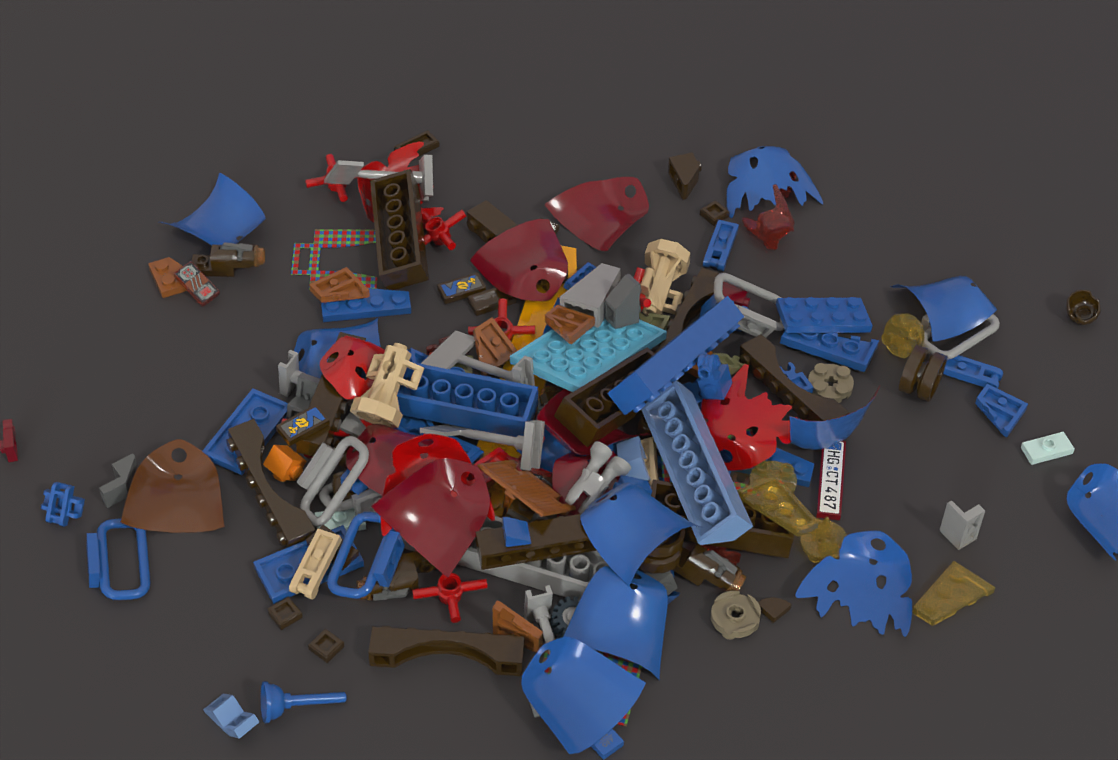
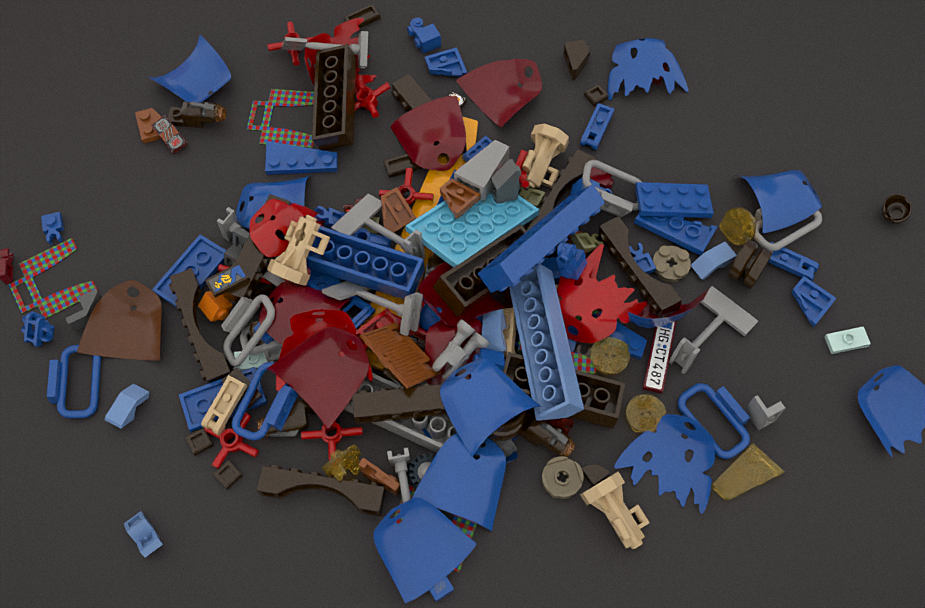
camera: 10 degrees right, 15 degrees up
(52, 436) = (39, 263): none -> piece
(61, 394) = (51, 226): none -> blue plate
(187, 579) = (124, 407): none -> medium blue slope
(275, 700) = (178, 526): blue piece -> none
(329, 613) = (237, 445): none -> red bar
(339, 287) = (280, 146): dark orange wing -> none
(461, 288) = (380, 151): tile -> none
(469, 613) = (343, 460): none -> clear yellow plate
(499, 162) = (426, 37): none -> blue brick
(515, 532) = (384, 399): blue slope -> none
(528, 188) = (446, 63): none -> blue wing
(772, 224) = (642, 111): clear red helmet -> none
(779, 504) = (610, 386): clear yellow wing -> none
(793, 626) = (609, 499): none -> tan piece
(864, 465) = (726, 311): none -> light grey piece
(878, 372) = (712, 259): none -> medium blue slope
(921, 525) = (728, 407): none -> blue bar

